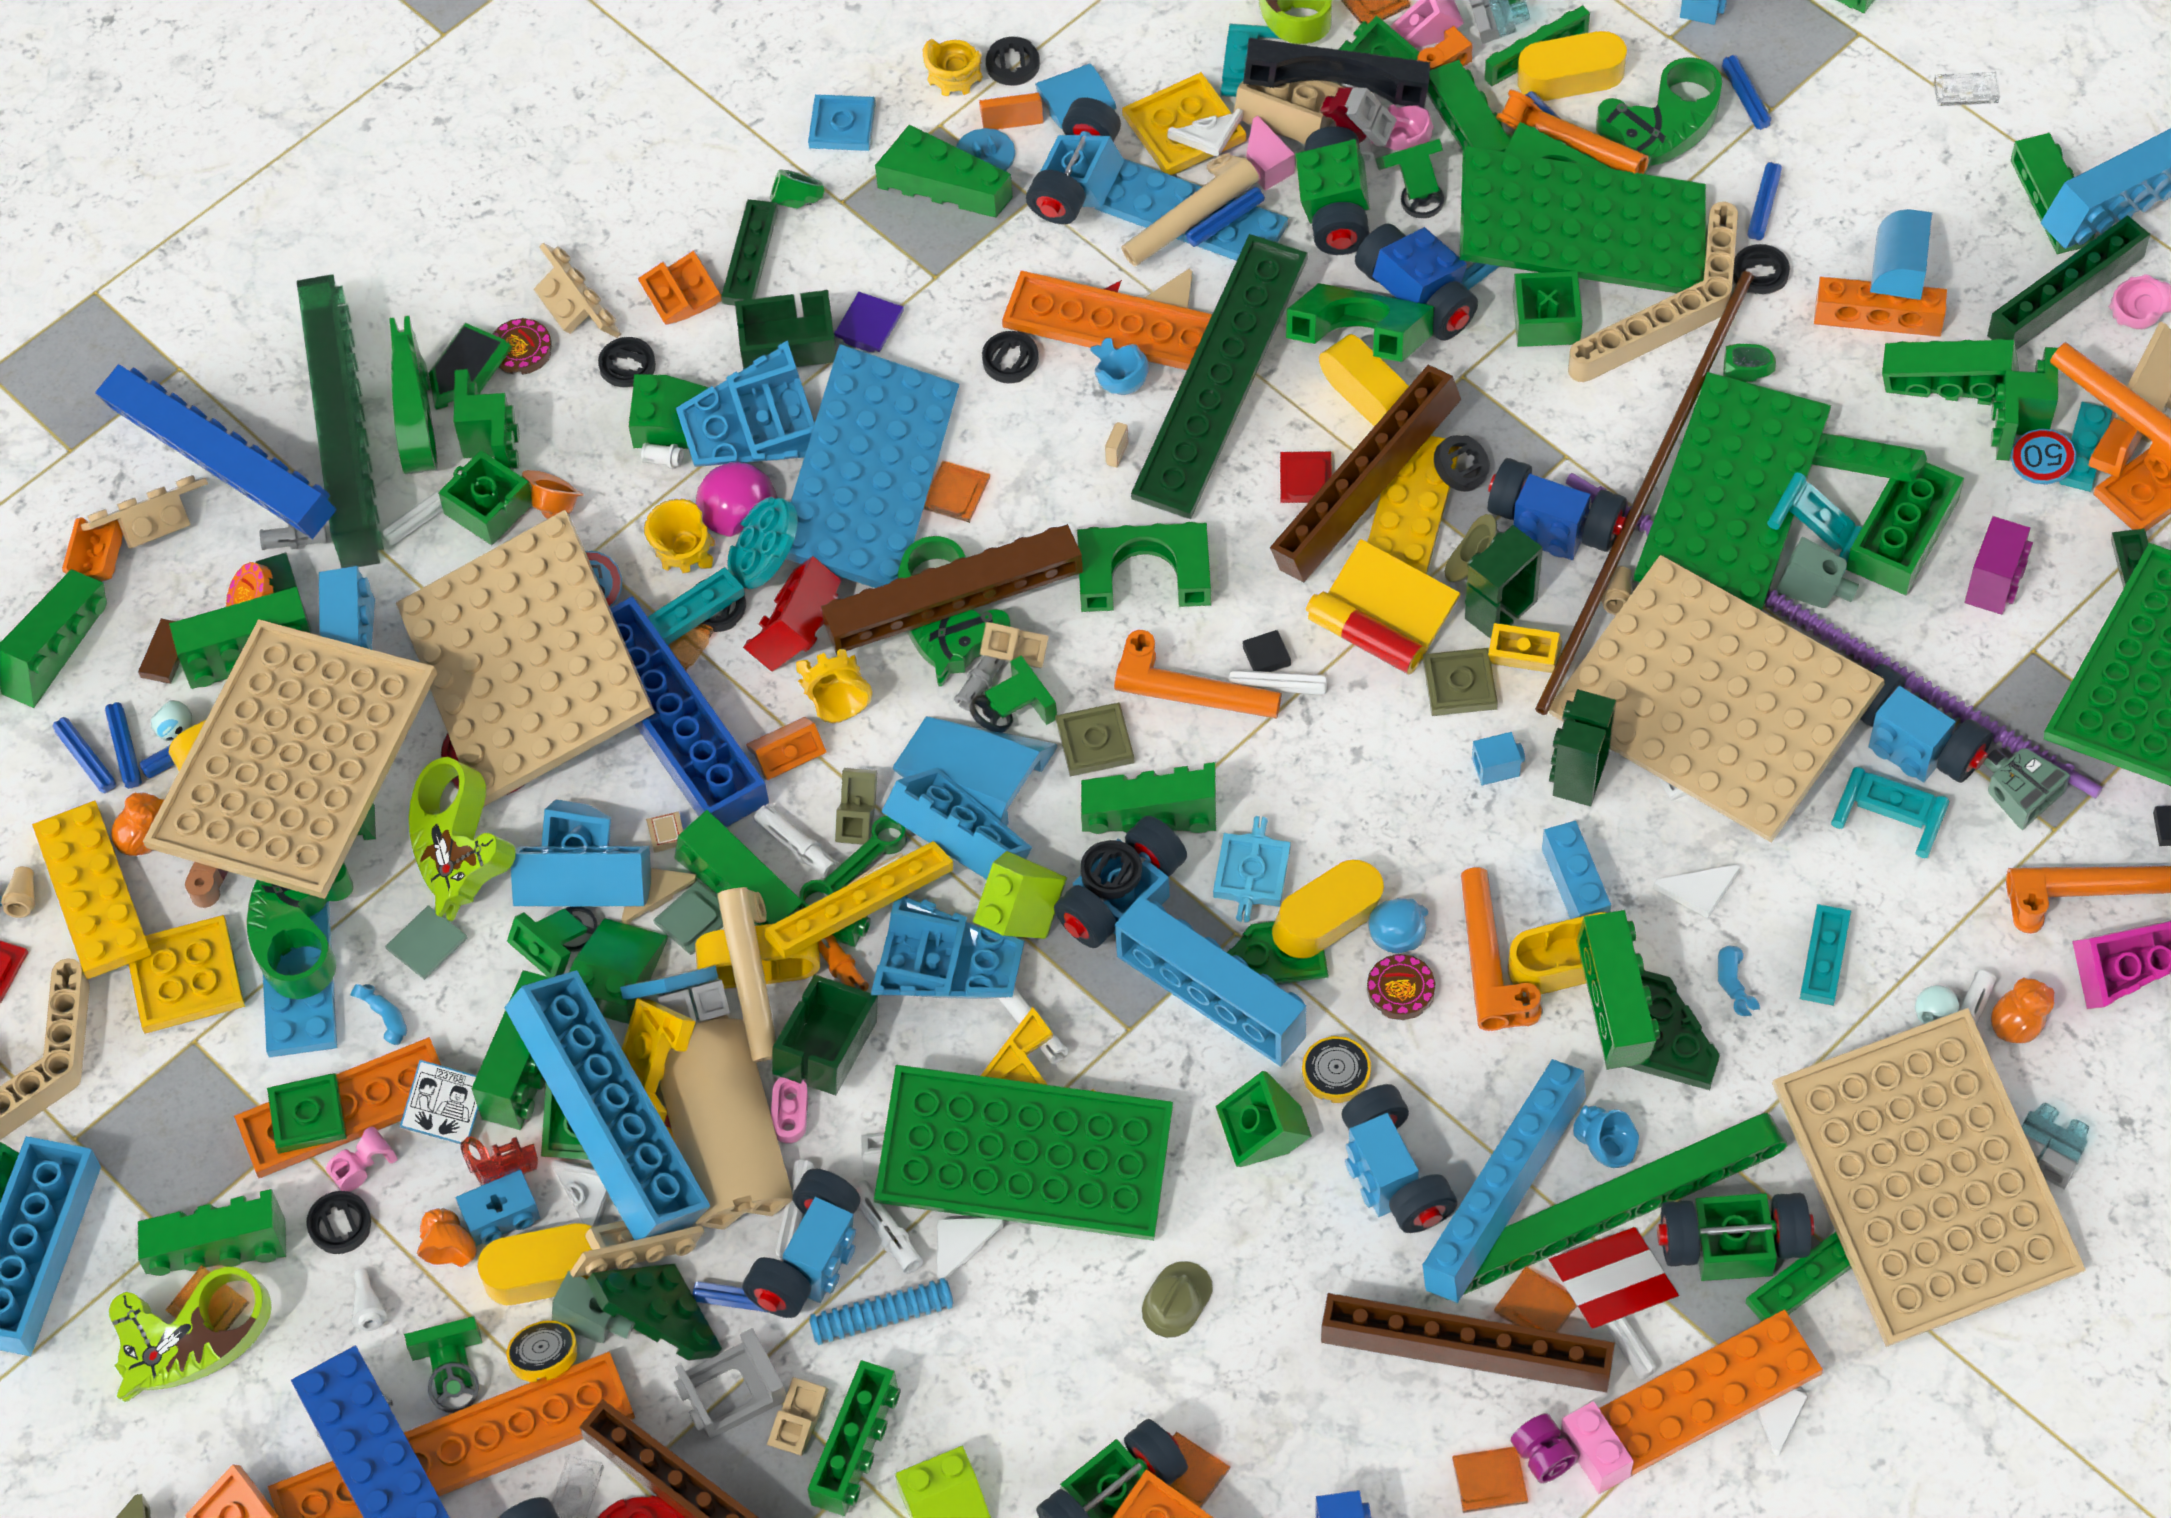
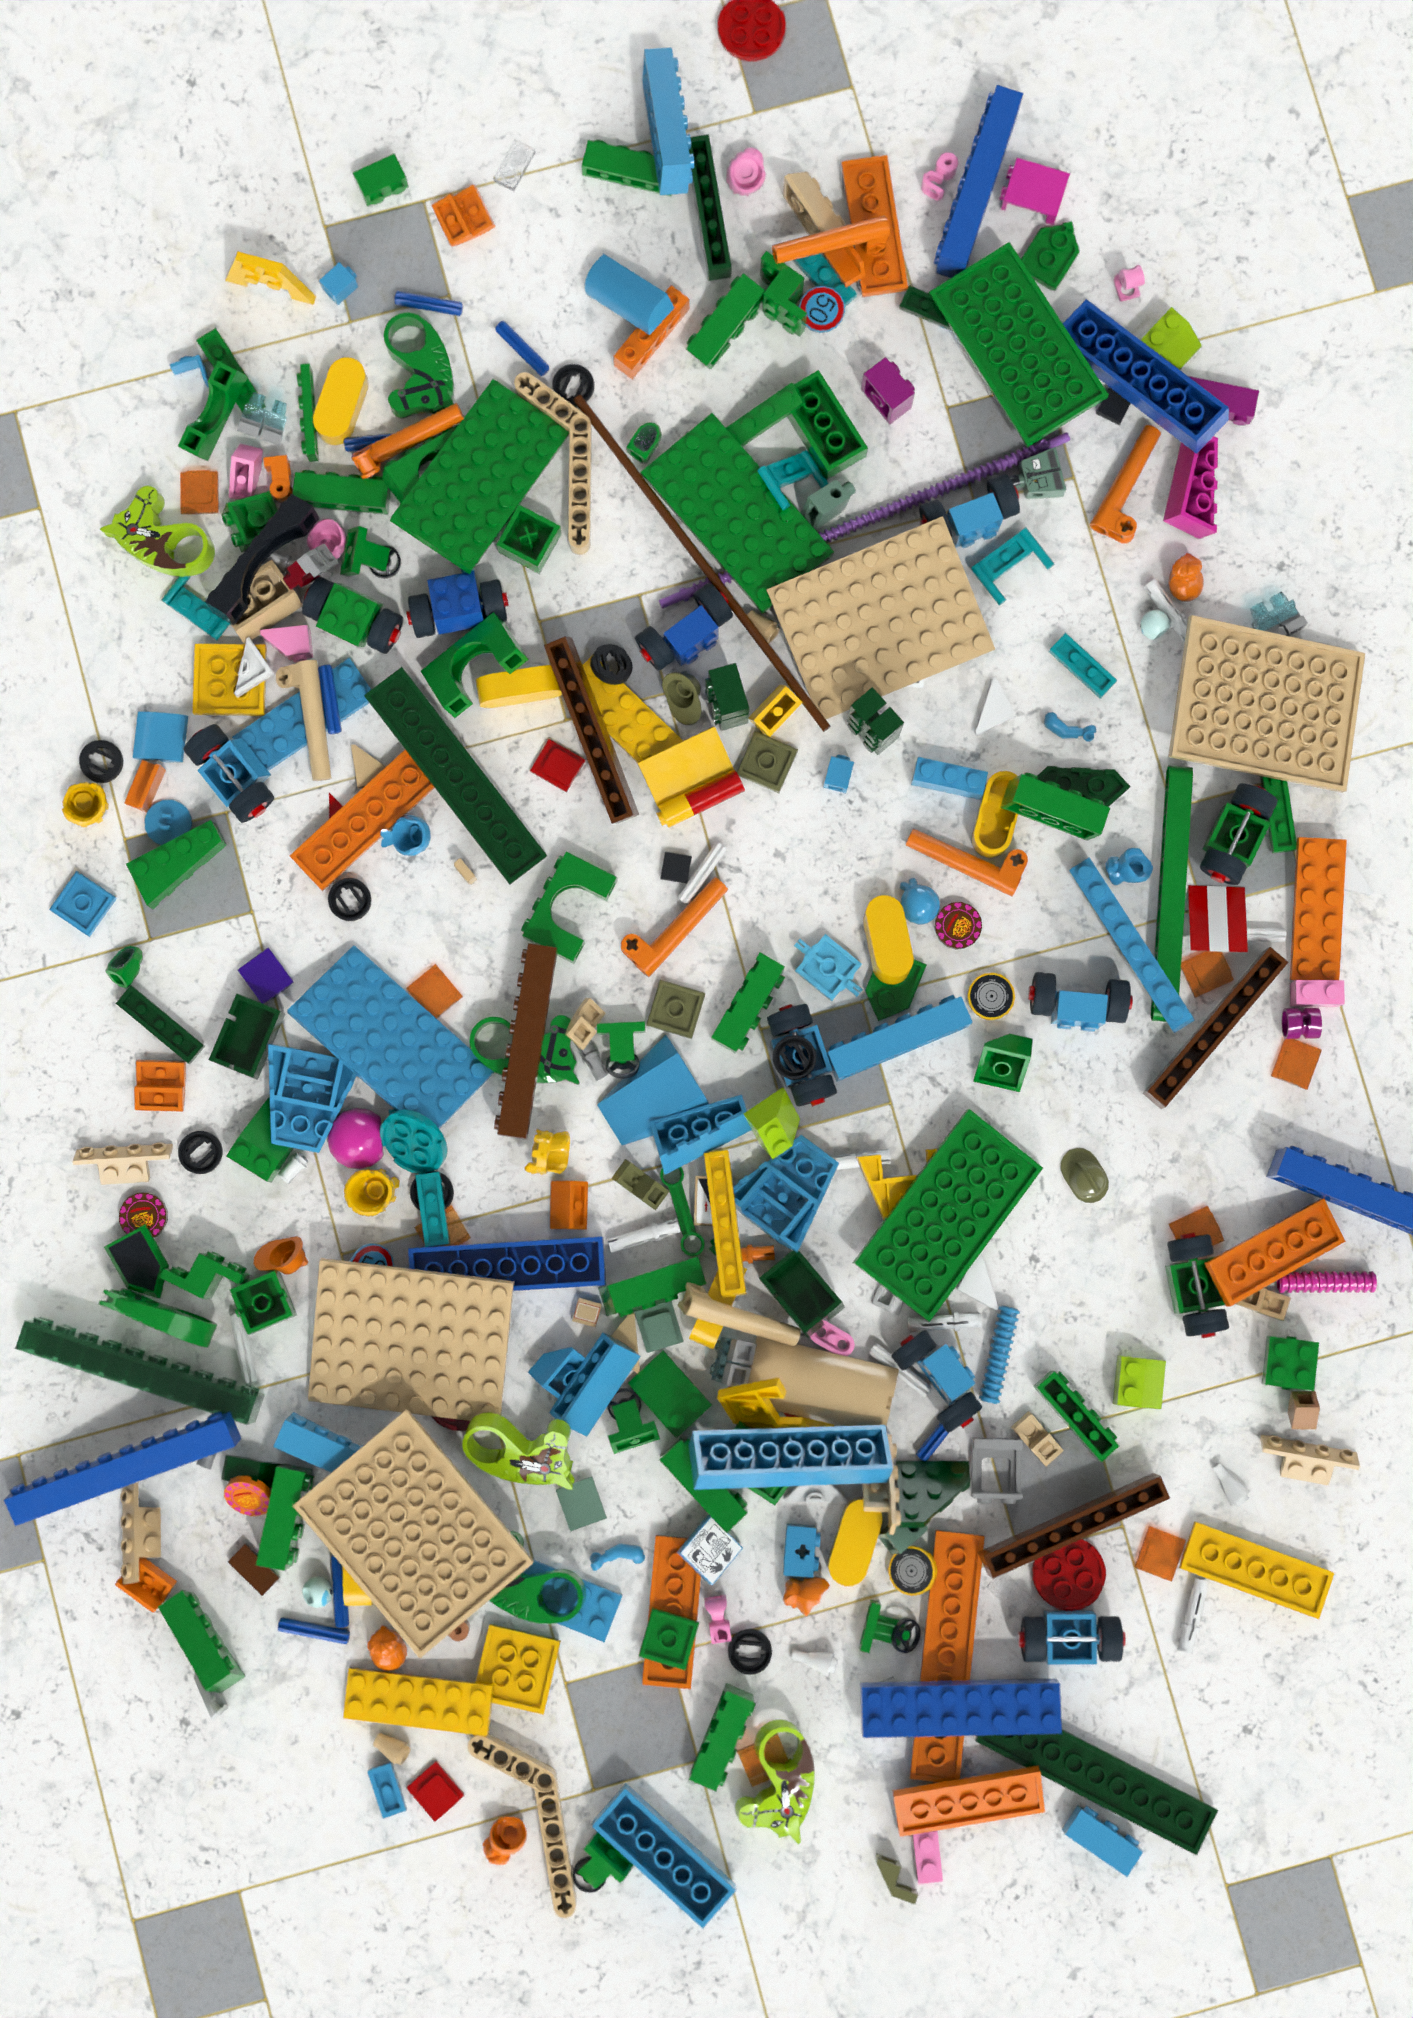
camera: 65 degrees left, 25 degrees up
(84, 755) = (306, 1660): blue axle -> none
(498, 1165) = (775, 1539): clear red piece -> none
(669, 983) = (715, 1371): dark azure tile -> none
(795, 615) = (480, 1148): red wedge -> none
(1871, 74) = (463, 216): none -> orange slope

